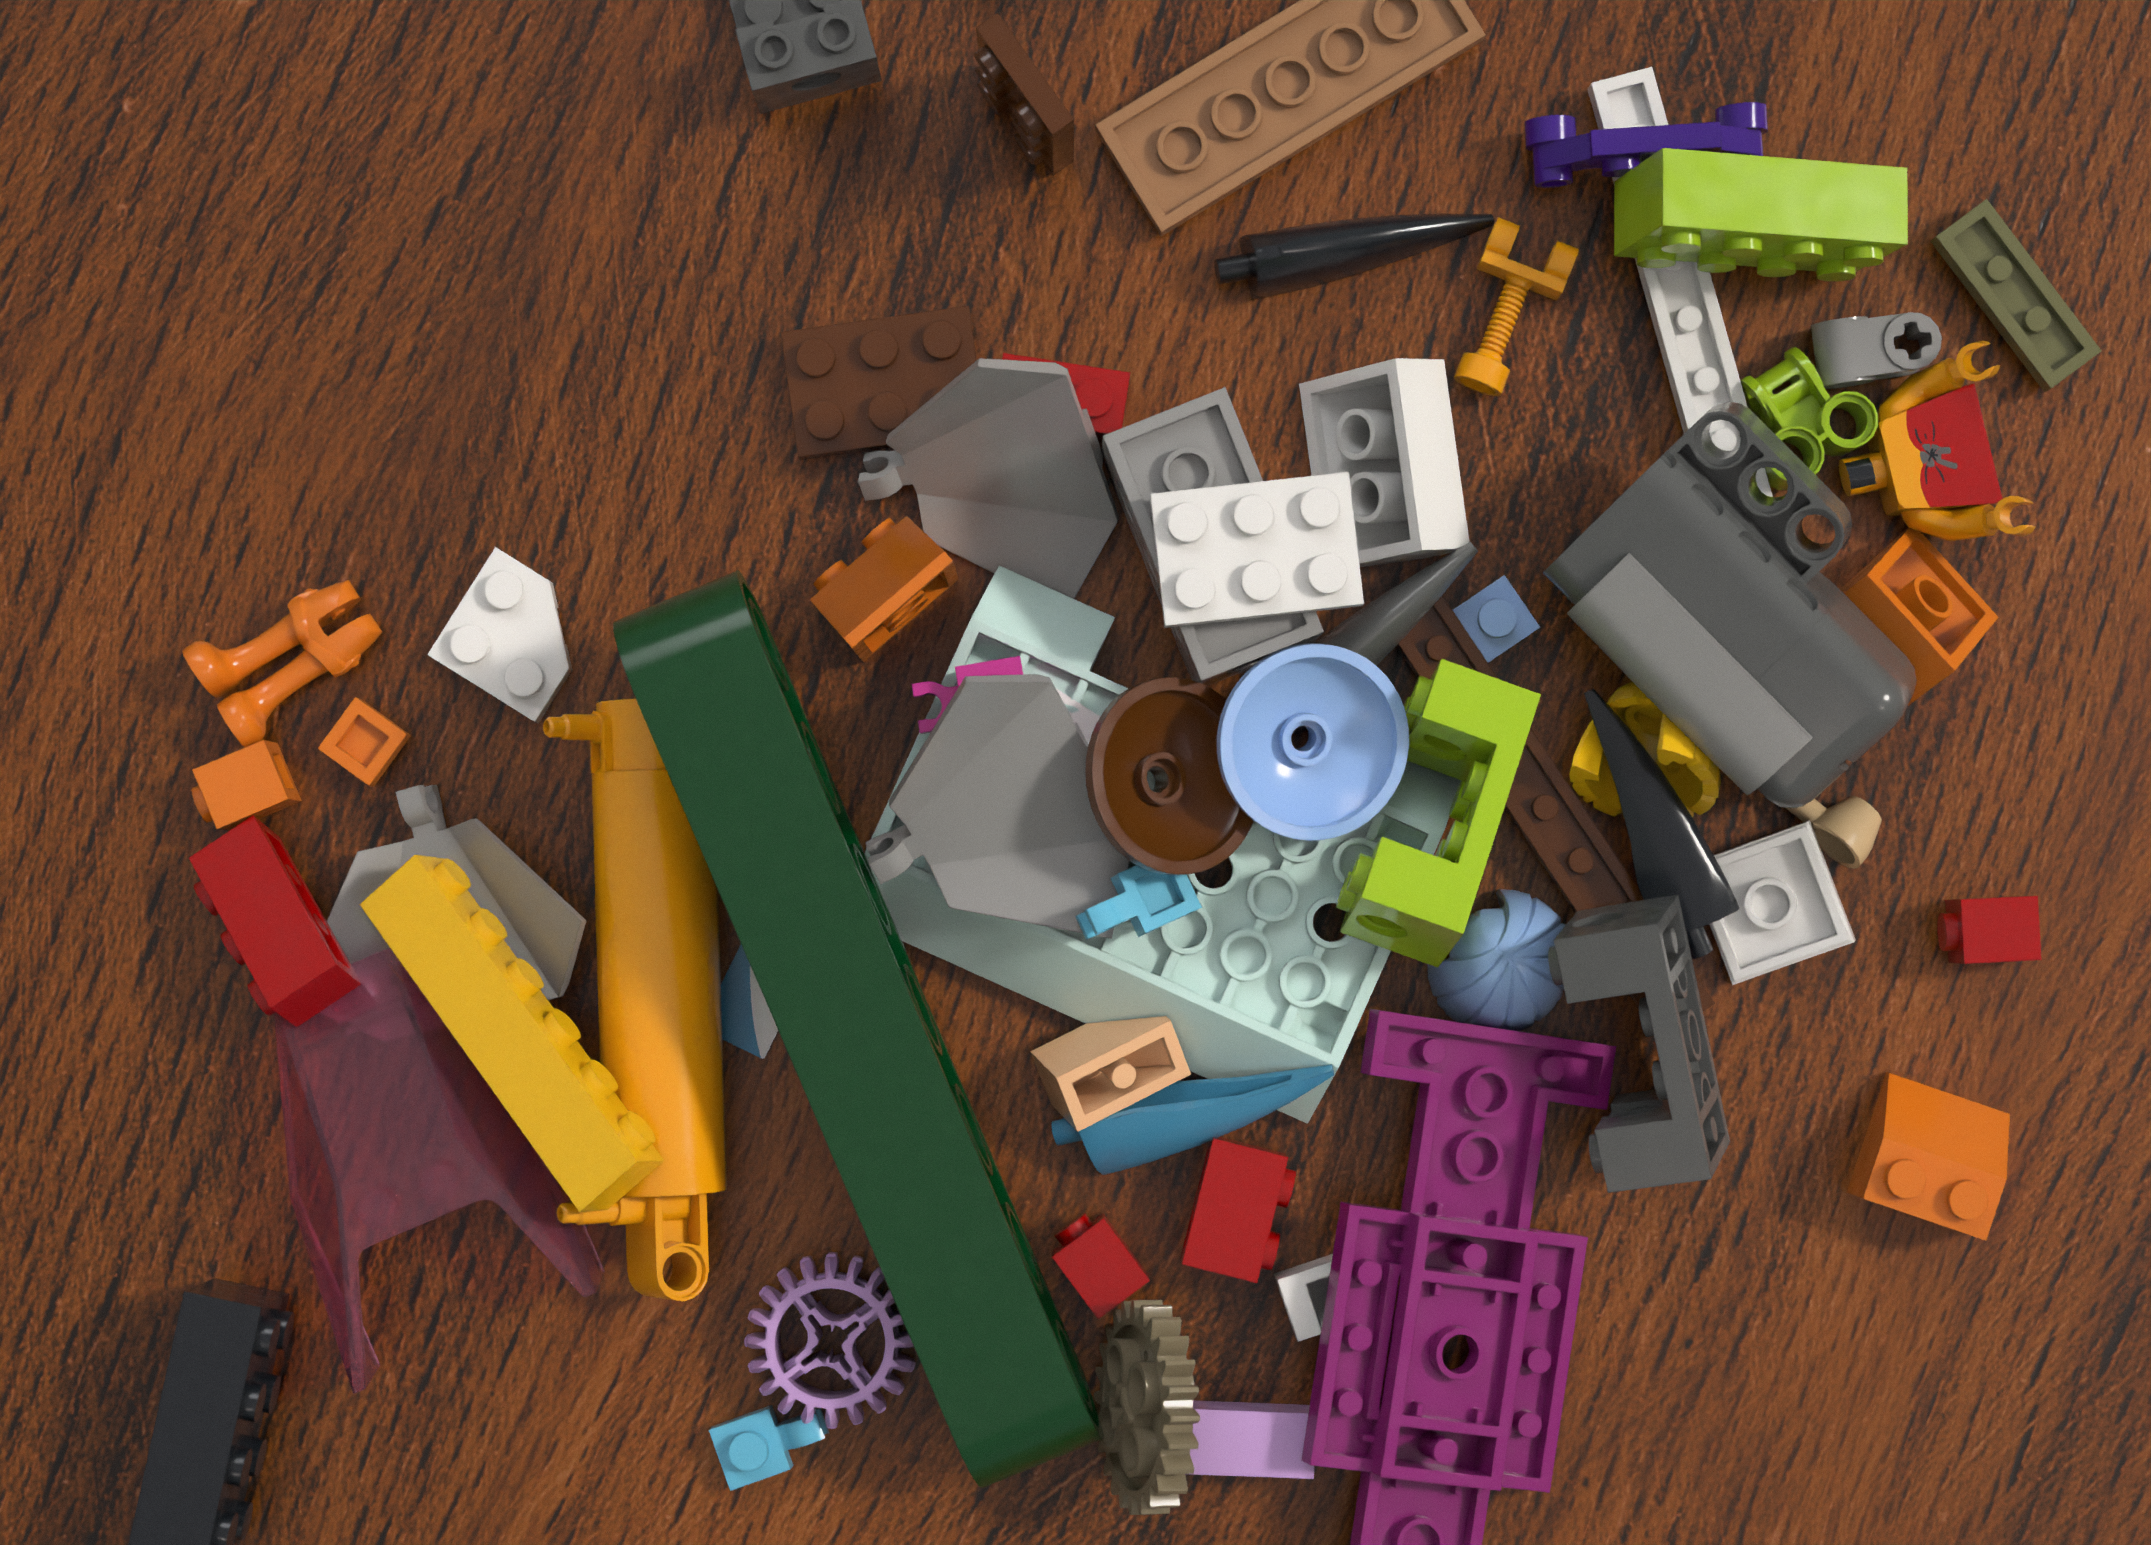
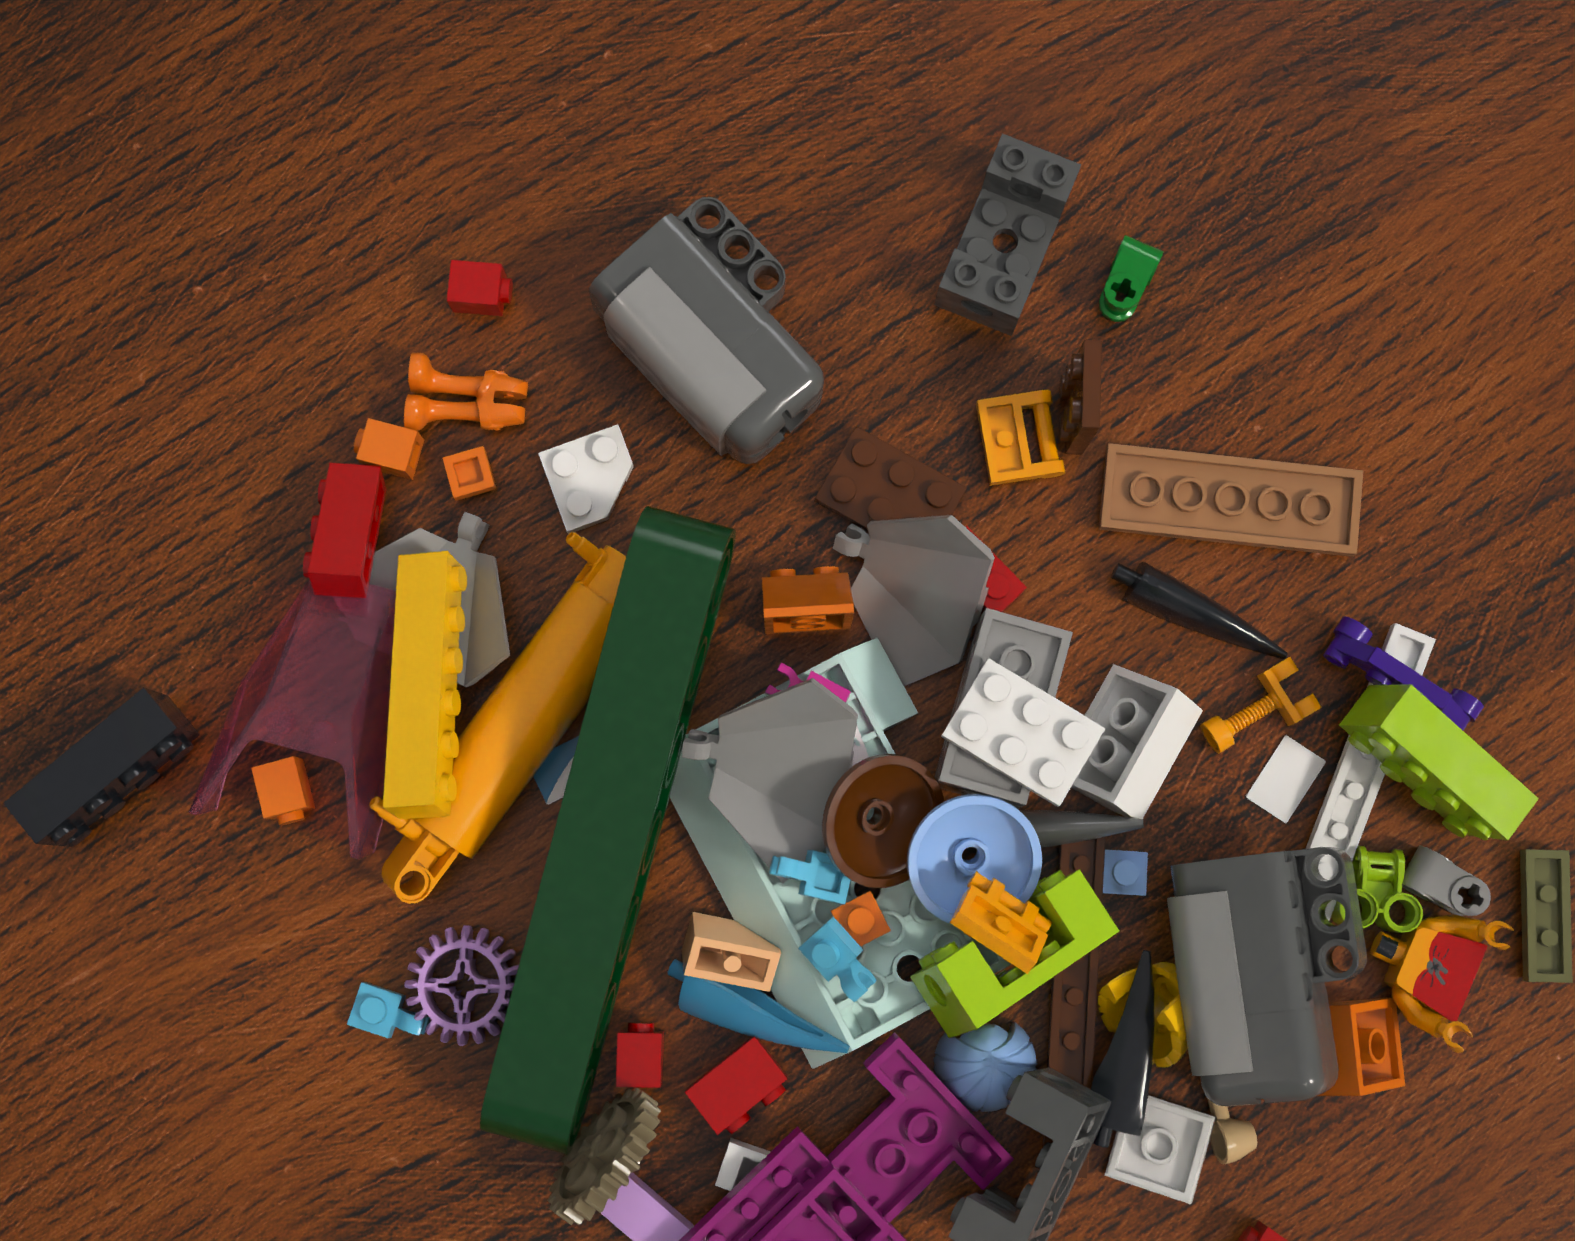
camera: 40 degrees right, 5 degrees down
(199, 511) = (478, 288): none -> red brick
(441, 1281) = (283, 790): none -> orange brick
(514, 359) = (707, 331): none -> dark grey piece
(970, 211) = (1006, 438): none -> light orange plate
(1232, 971) = (835, 953): none -> medium azure plate
(1234, 911) = (862, 918): none -> orange plate
(1398, 788) = (1002, 922): none -> light orange plate
(1600, 365) = (1285, 779): none -> white sticker

